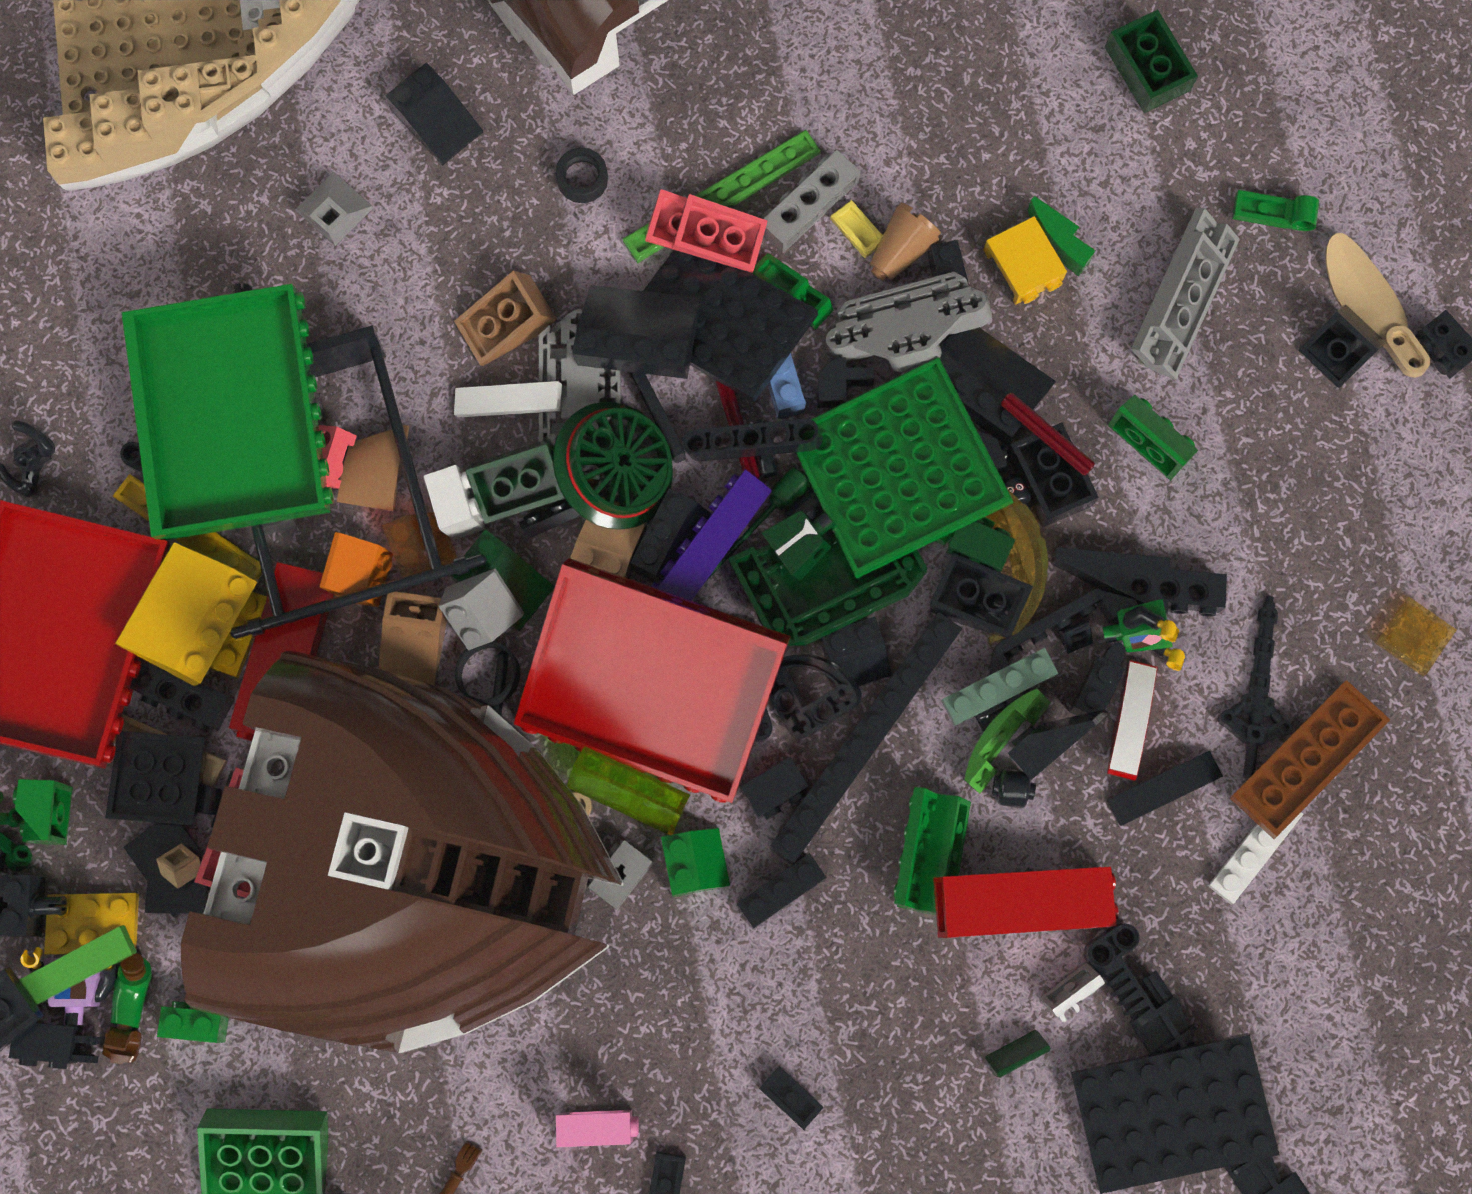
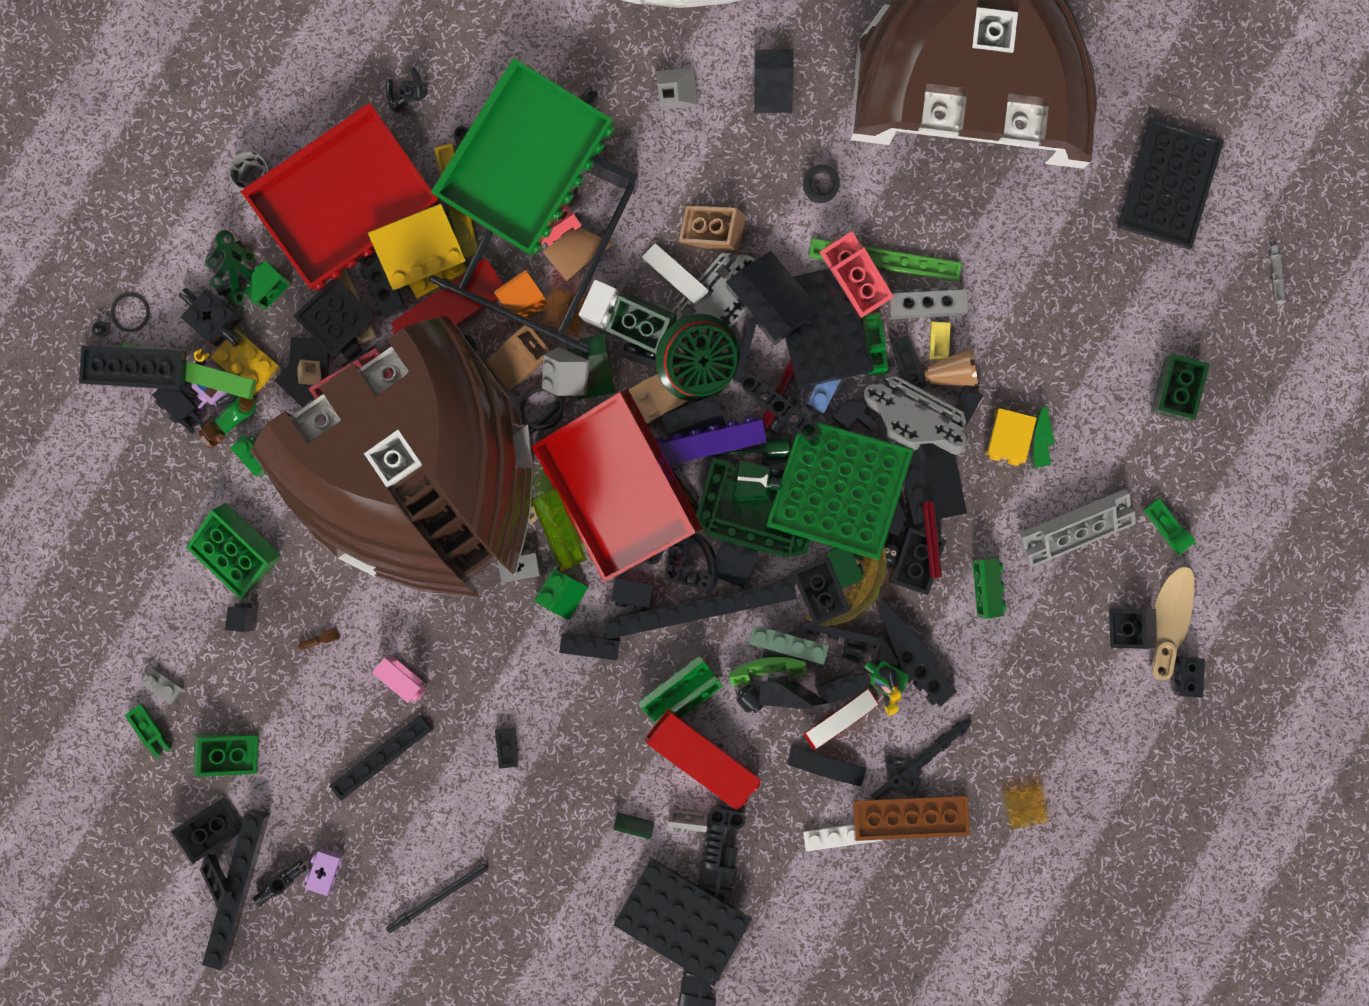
camera: 40 degrees right, 10 degrees up
(842, 277) = (907, 361): none -> black plate

